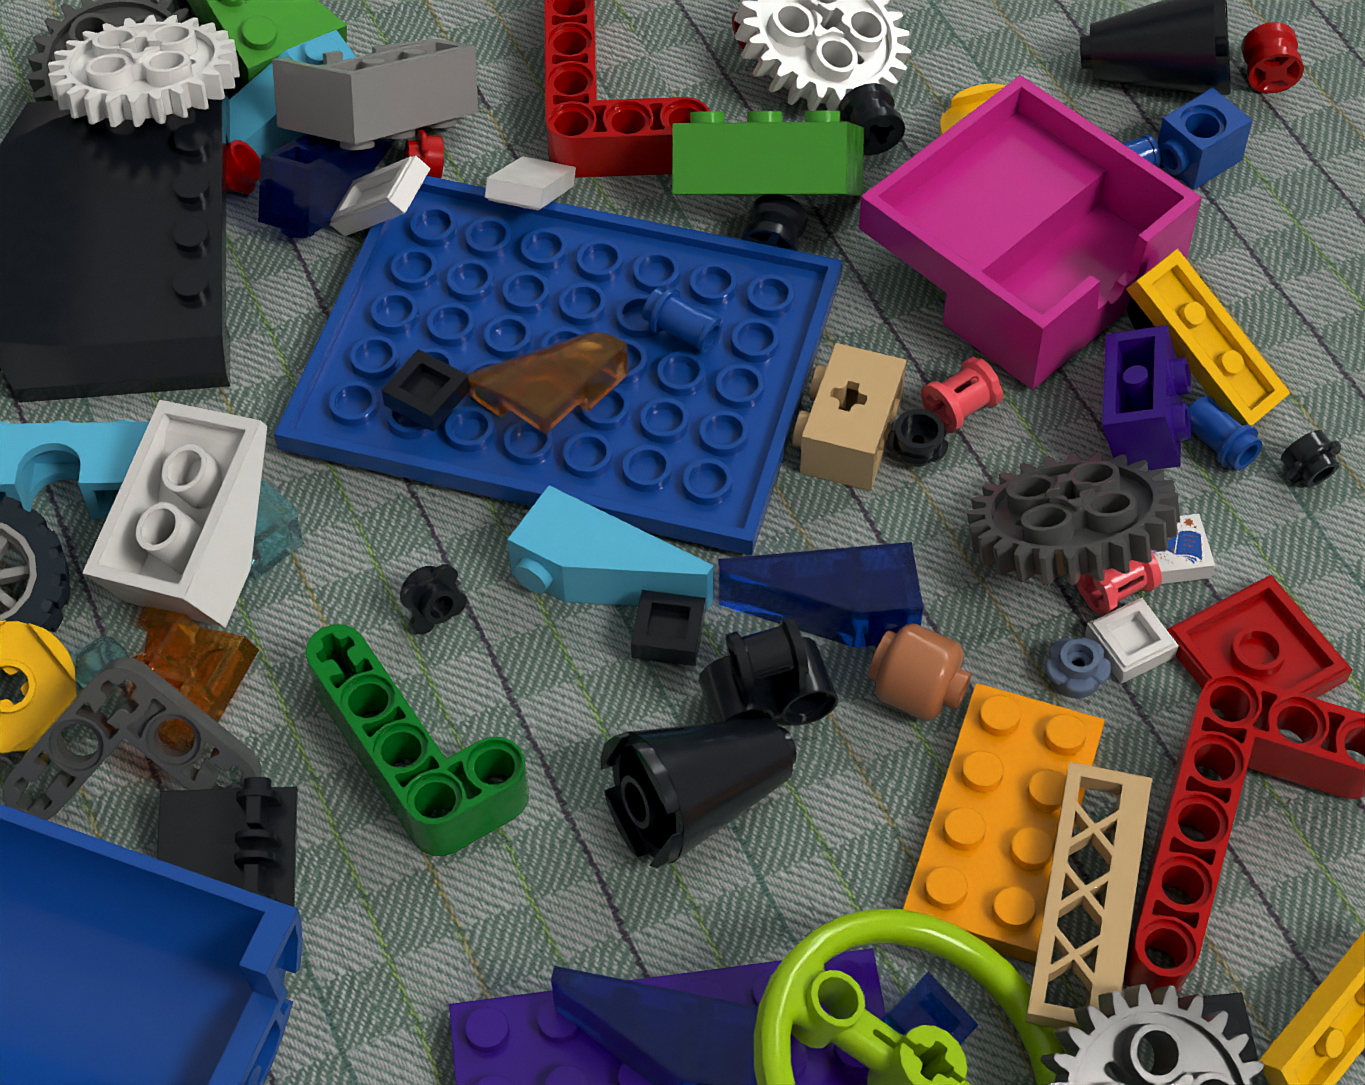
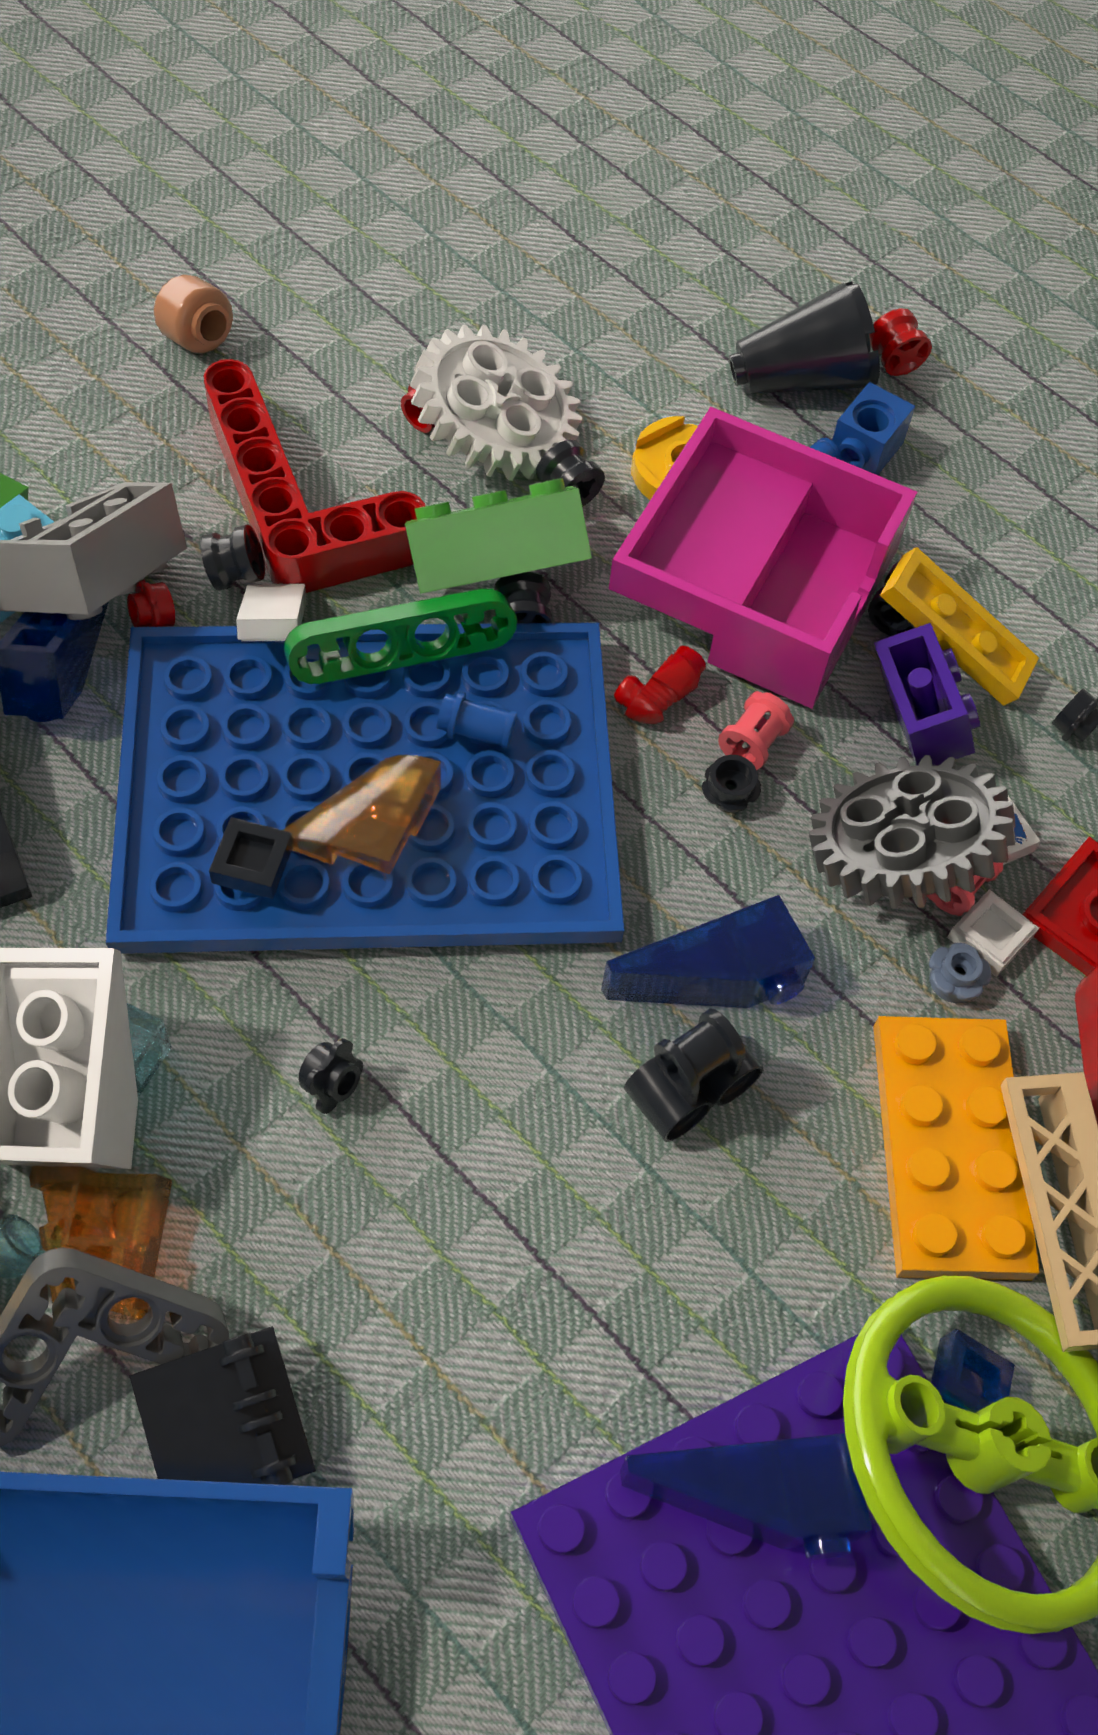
camera: 25 degrees left, 5 degrees up
(379, 196) = (126, 660): white tile -> none
(399, 735) = (359, 1231): green beam -> none
(514, 128) = (232, 557): none -> black wheel
(598, 558) = (480, 987): medium azure slope -> none
(638, 238) = (401, 646): none -> green beam
(668, 627) = (575, 1040): black plate -> none
(691, 781) = (662, 1203): black cone -> none
(850, 416) = (666, 777): tan brick -> none
(890, 332) = (669, 684): none -> red arm
(919, 672) = (829, 1022): nougat head -> none
(1232, 442) = (999, 711): blue pin -> none

